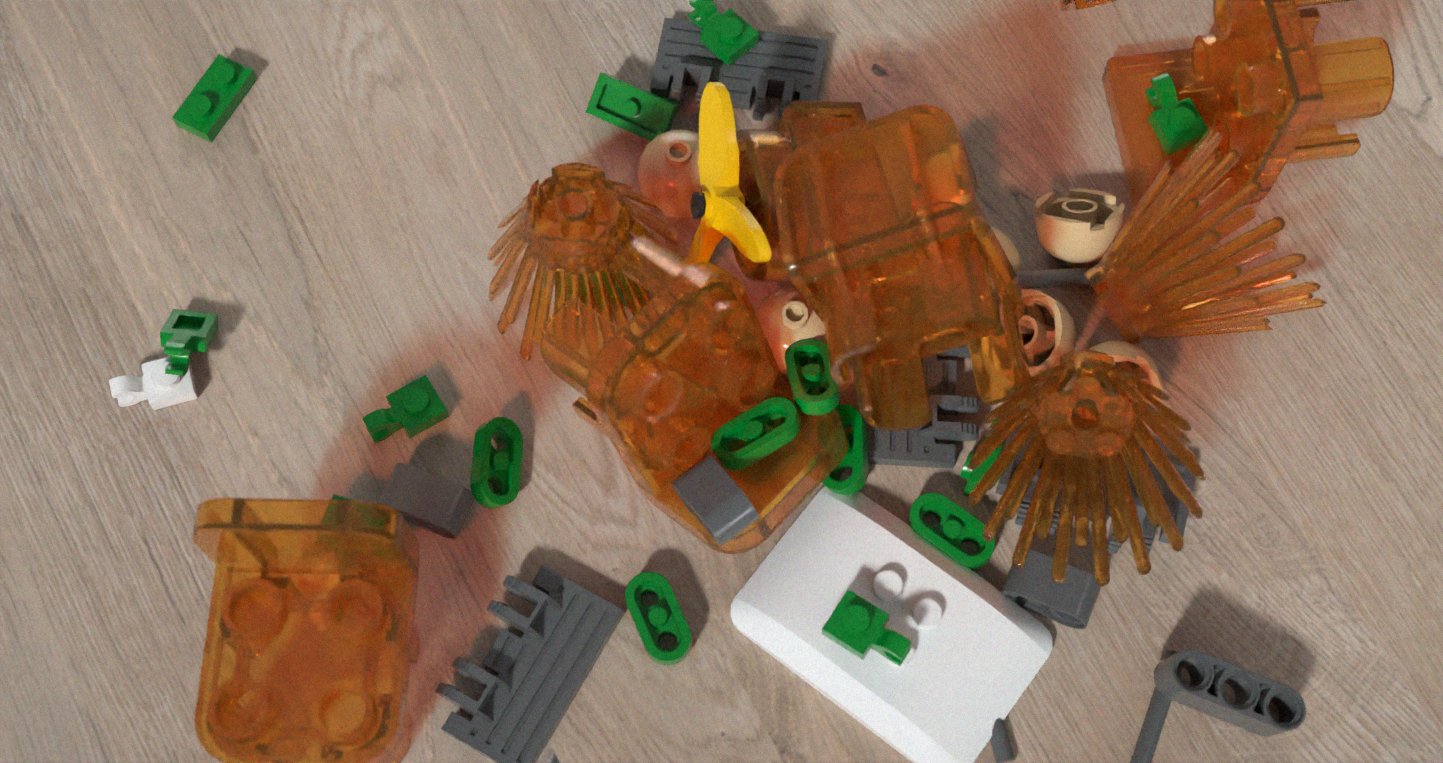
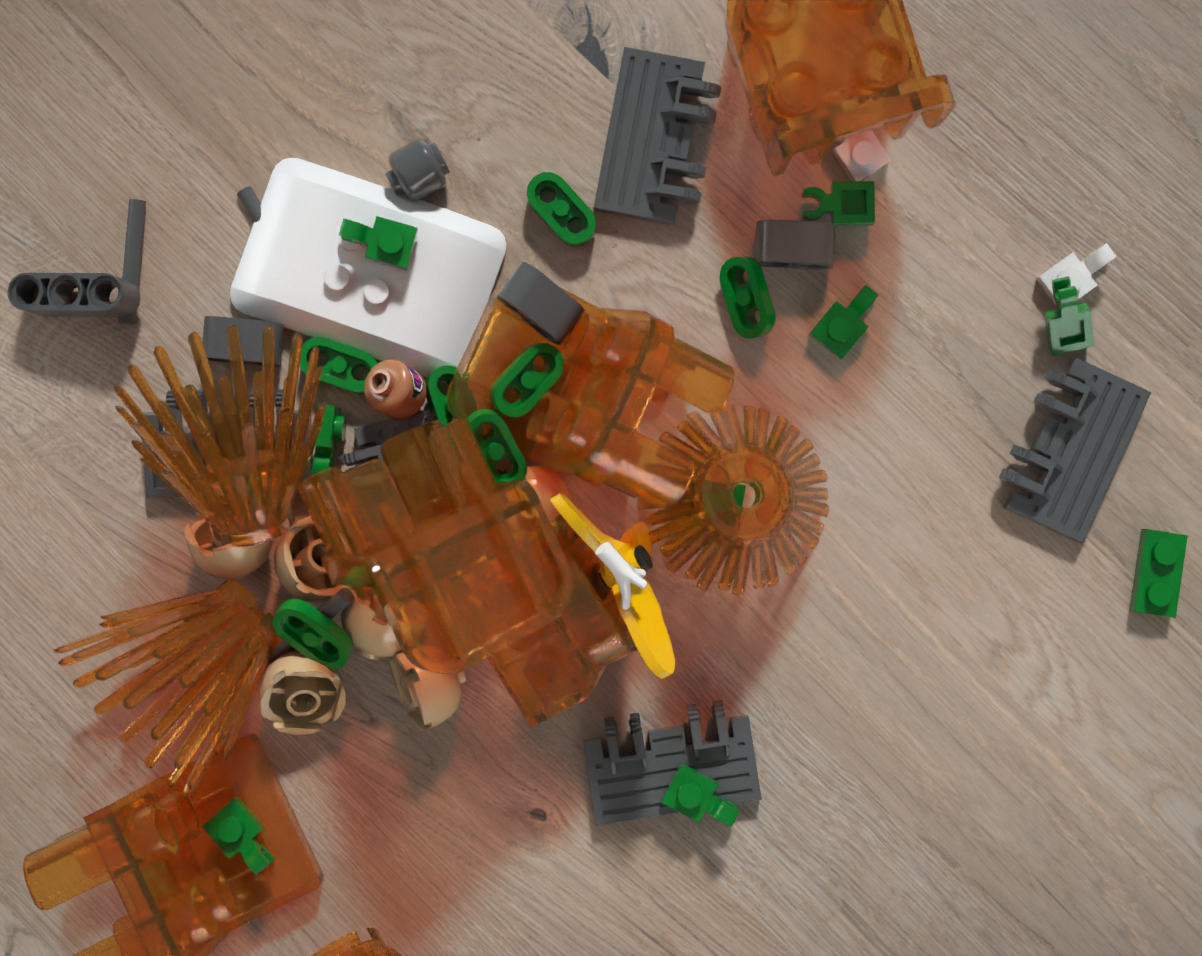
camera: 160 degrees right, 20 degrees up
(236, 222) = (1079, 451): none -> dark grey hinge
(631, 107) = (756, 685): green plate -> none
(670, 171) = (696, 632): cylinder -> none
(722, 178) = (622, 571): none -> white bar
(802, 708) = (417, 170): none -> dark grey head
(898, 479) = (395, 389): none -> nougat head
(1052, 257) = (312, 633): none -> green plate

